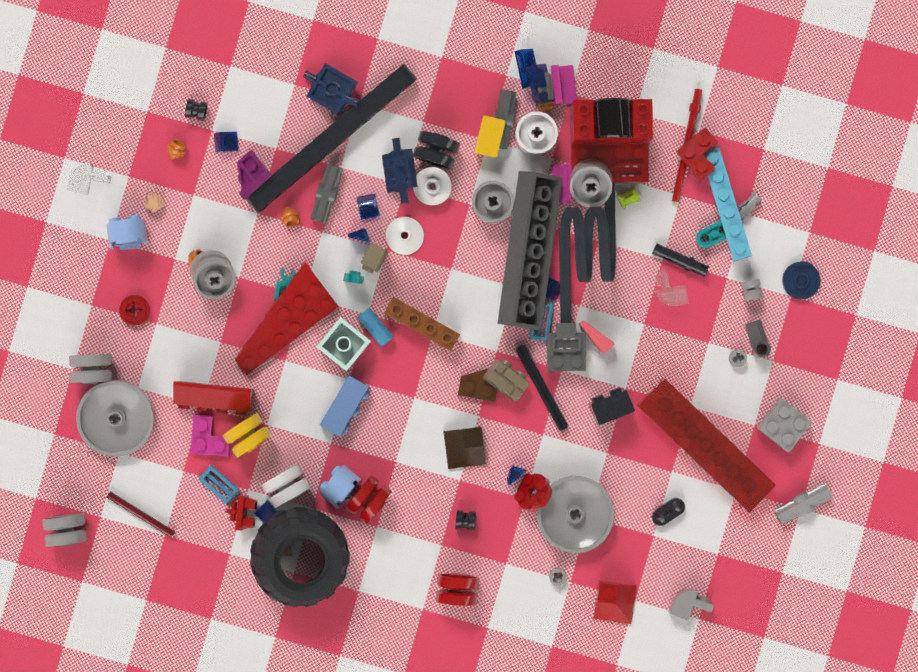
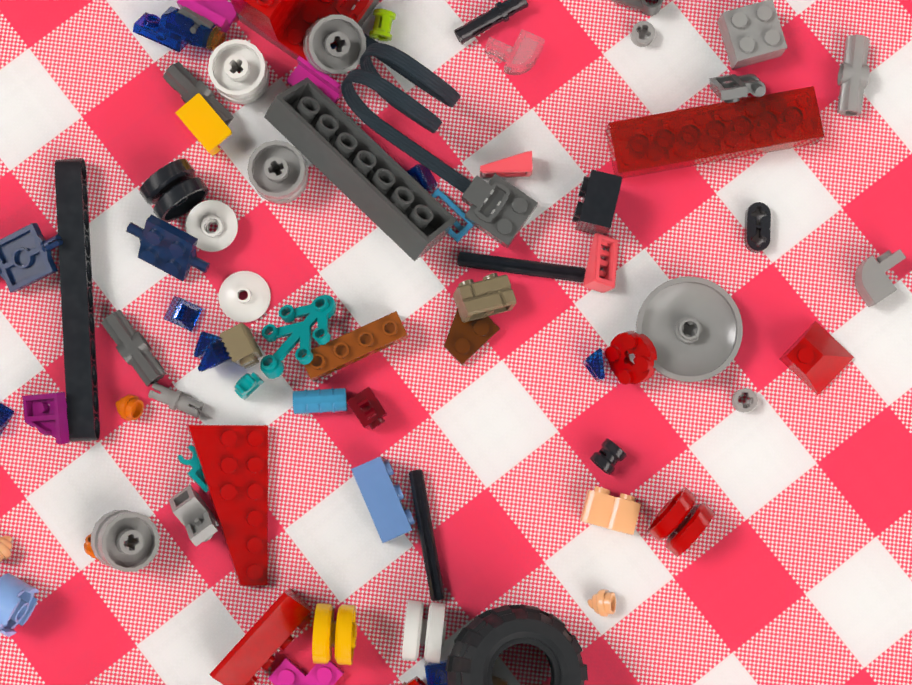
camera: 55 degrees left, 5 degrees down
(128, 303) = (90, 661): red gear -> none
(255, 303) = (194, 515): none -> light grey brick
(314, 241) = (175, 400): none -> light grey pin
(338, 451) = (426, 535): none -> black axle
(340, 486) = (468, 569): light blue brick -> none
(343, 344) = (312, 449): light aqua brick -> none
(356, 246) = (214, 356): none -> clear blue slope
(369, 500) = (507, 548): red wheel -> none
(378, 578) = (603, 602): none -> light nougat plate
(391, 358) = (367, 408): none -> dark red brick
(406, 285) = (318, 311): none -> teal plant
(434, 544) = (610, 511): none -> light nougat brick
(464, 447) = (526, 398): dark brown slope -> none
(576, 429) = (594, 277): none -> coral slope
(741, 437) = (732, 87): none -> dark grey plate

